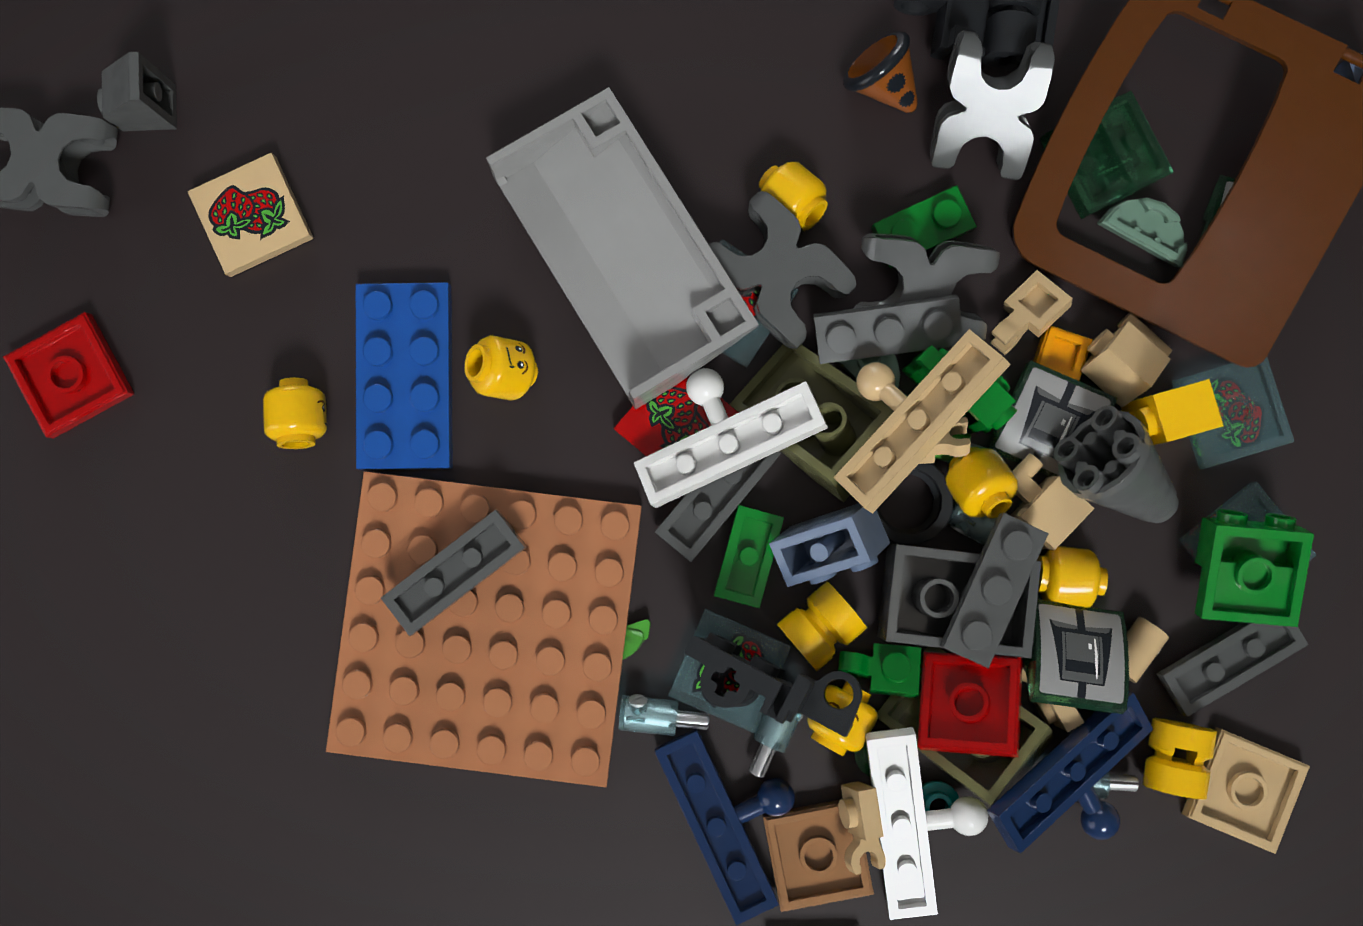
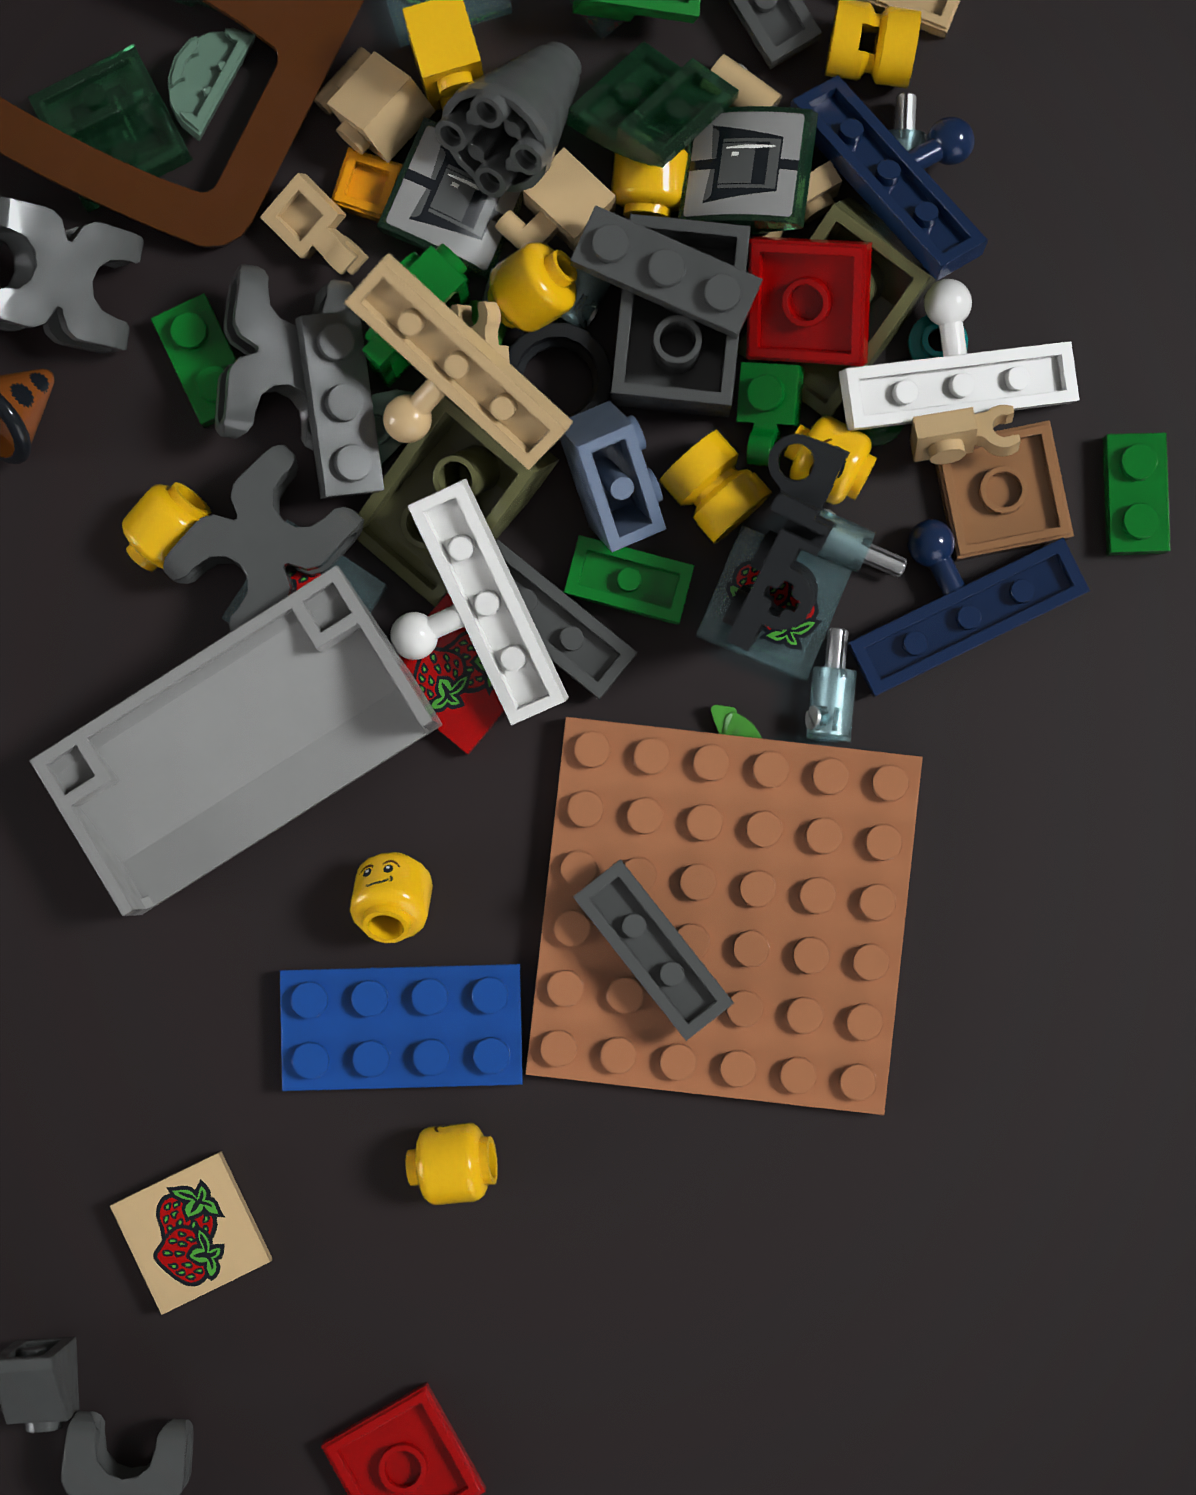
camera: 90 degrees left, 0 degrees up
(1127, 579) = (651, 106): none -> clear green slope

